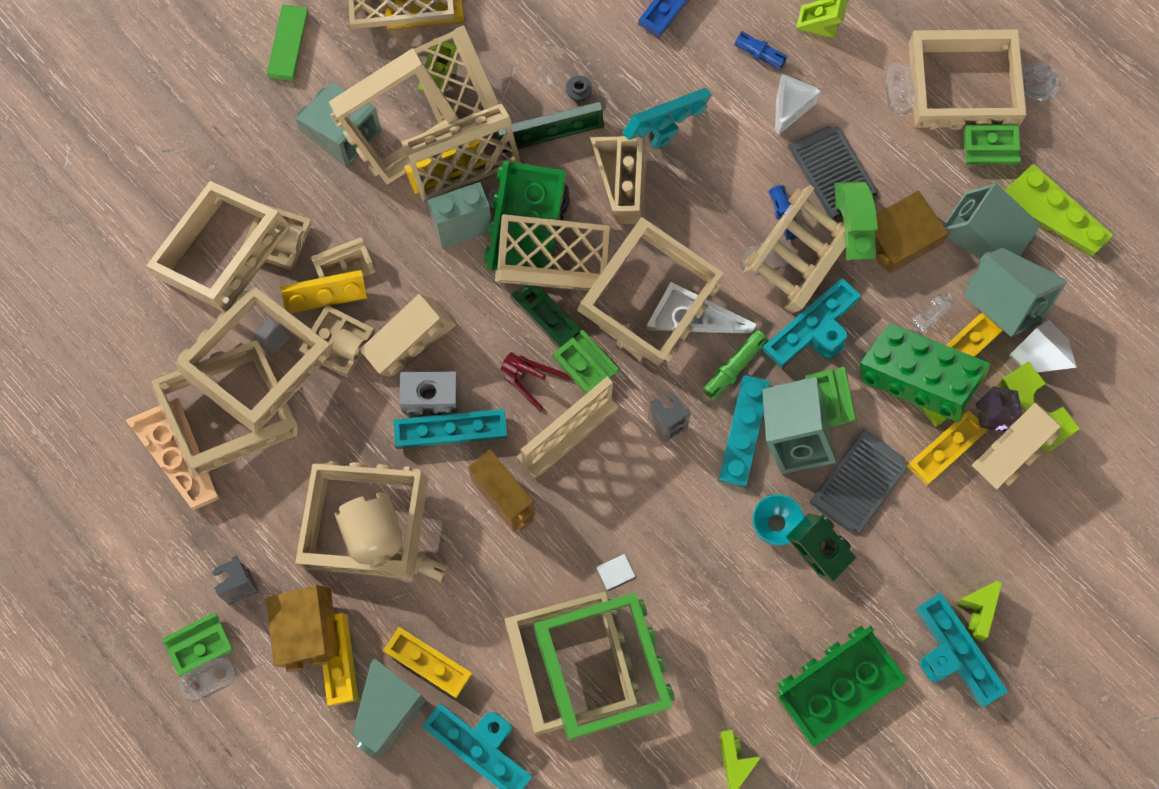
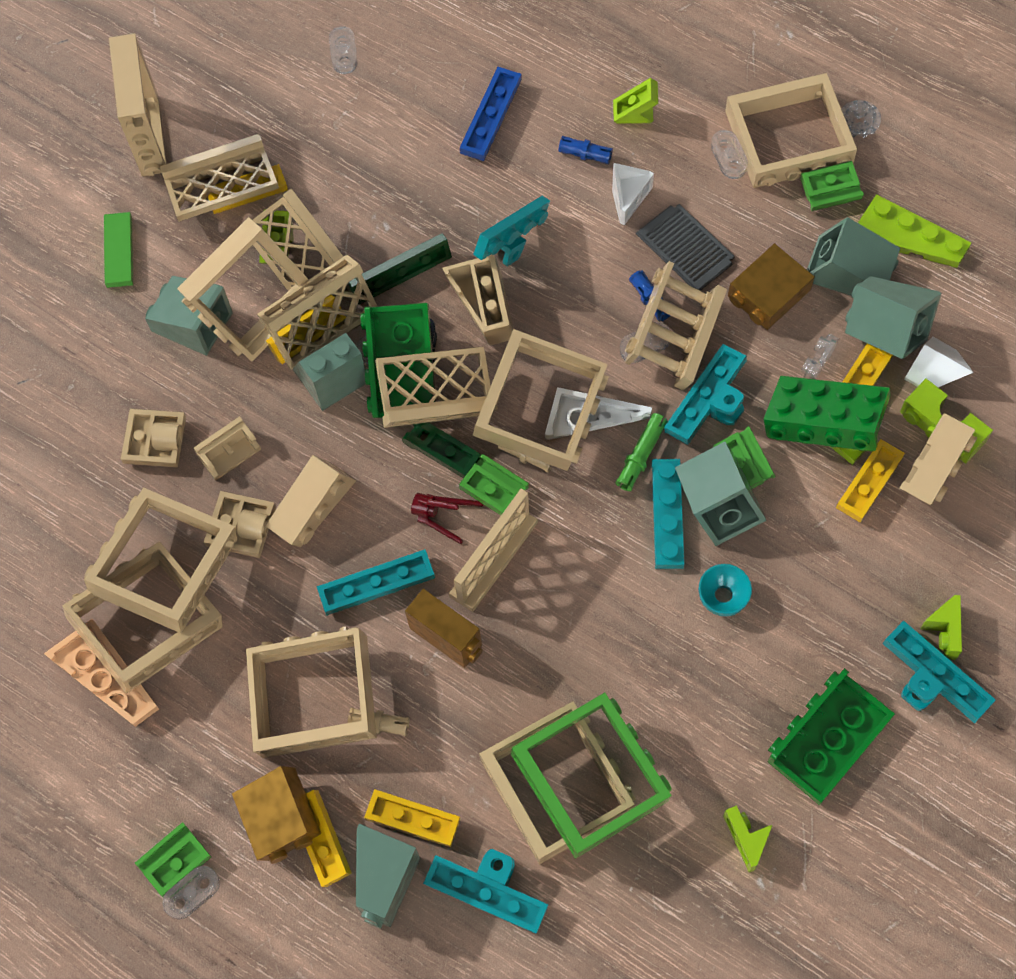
camera: 10 degrees left, 5 degrees down
(238, 584) = (201, 786): dark grey hinge -> none
(245, 262) = (126, 474): tan window -> none
(271, 337) = (172, 537): light grey sticker -> none
(323, 292) = (215, 478): yellow plate -> none
(370, 529) = (322, 695): tan cylinder -> none
(416, 383) = (330, 545): light grey brick -> none
(575, 94) = (418, 232): dark grey plate -> none
(615, 571) = (577, 681): white sticker -> none
(668, 421) = (592, 520): dark grey hinge -> none
(808, 539) = (759, 601): dark green brick -> none
(859, 218) = (726, 283): bright green arch -> none
(860, 482) = (794, 535): dark grey window -> none
(999, 409) = (910, 429): brick -> none

